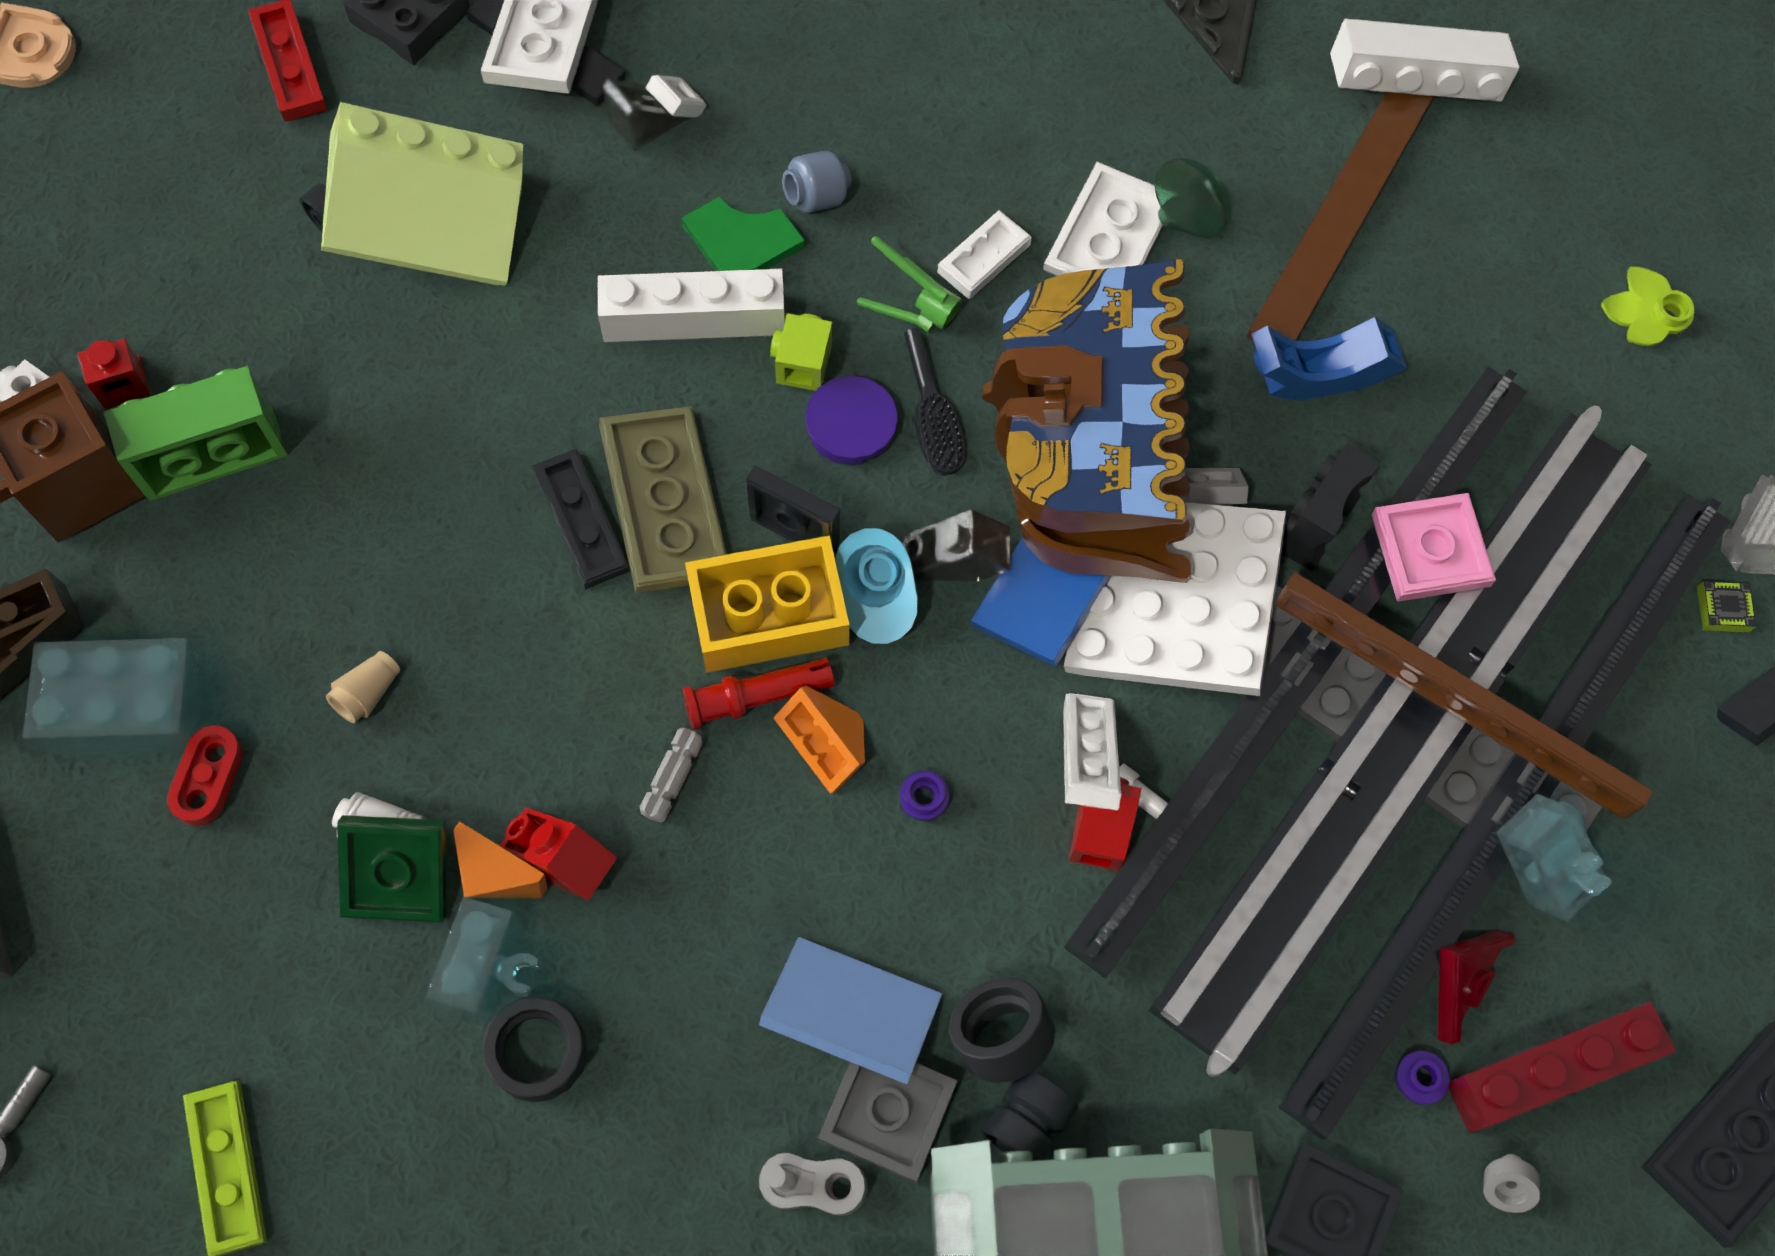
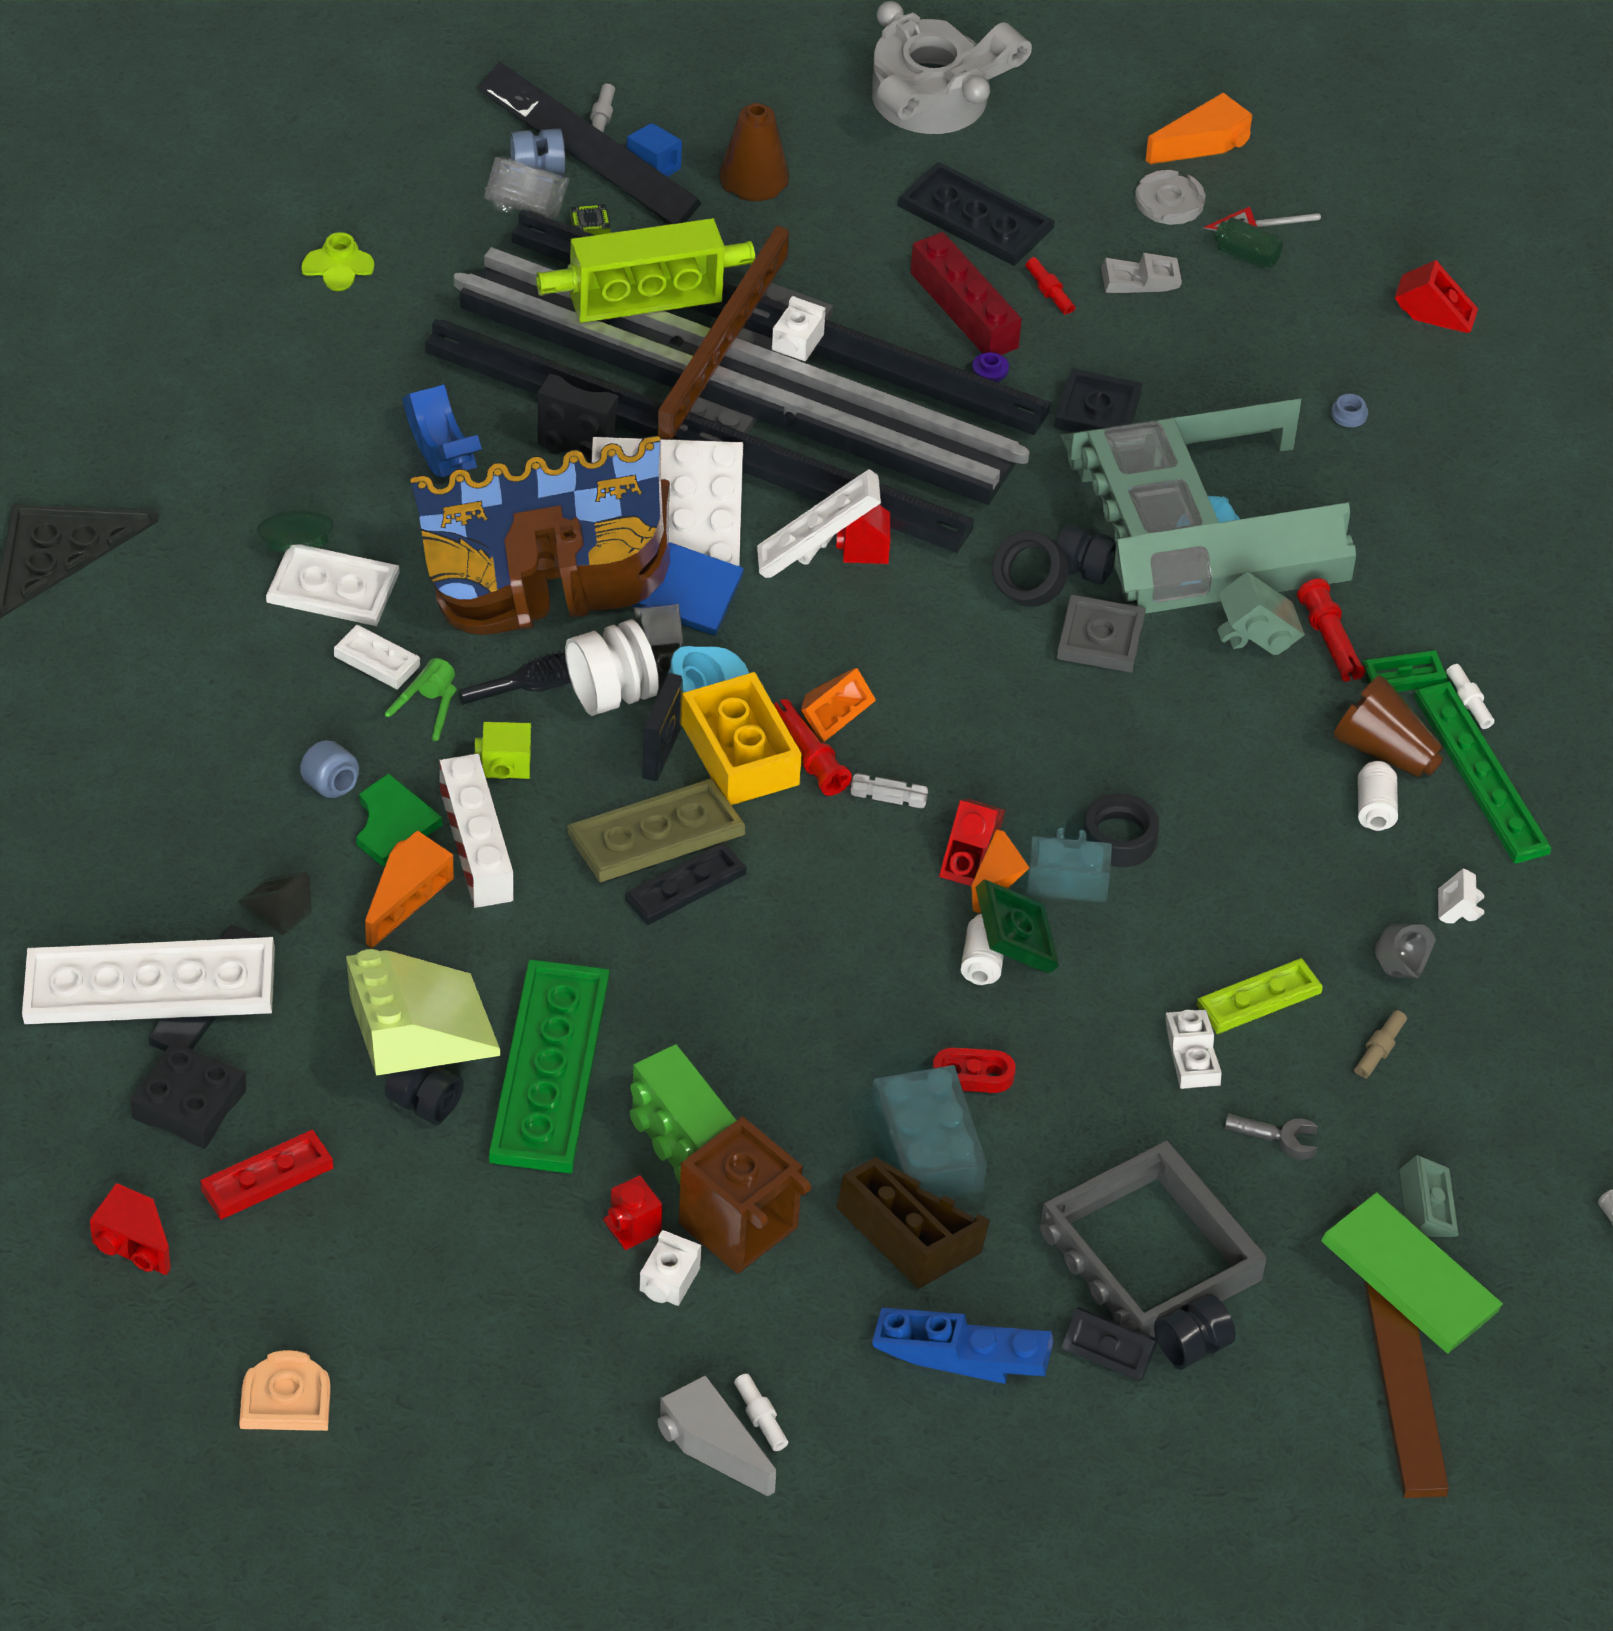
camera: 100 degrees left, 20 degrees down
(163, 1055) = (1192, 1049): none -> white slope
(349, 332) = (549, 1067): none -> green plate
(361, 688) = (873, 986): tan cone -> none
(634, 227) = (410, 878): none -> orange slope
(676, 96) = (255, 879): white tile -> none
(798, 1183) = (1164, 672): light grey piece -> none
(851, 420) = (557, 722): dark purple tile -> none
(851, 1010) = (1039, 655): medium blue tile -> none
(900, 473) = (611, 667): none -> white wheel
(928, 781) = (864, 634): dark purple plate -> none
(1341, 214) = (280, 441): reddish brown tile -> none
(1423, 60) = (133, 389): white brick -> none
(1433, 547) = (602, 355): bright pink tile -> none
(1458, 810) = (799, 329): none -> white brick
(1466, 978) = (918, 344): dark red tile -> none
(1511, 1184) = (1048, 319): light grey tile -> none
(1553, 857) = (826, 288): clear light blue brick -> none
(1567, 606) = (646, 270): none -> lime brick
(1589, 1207) = (1050, 286): none -> red bar

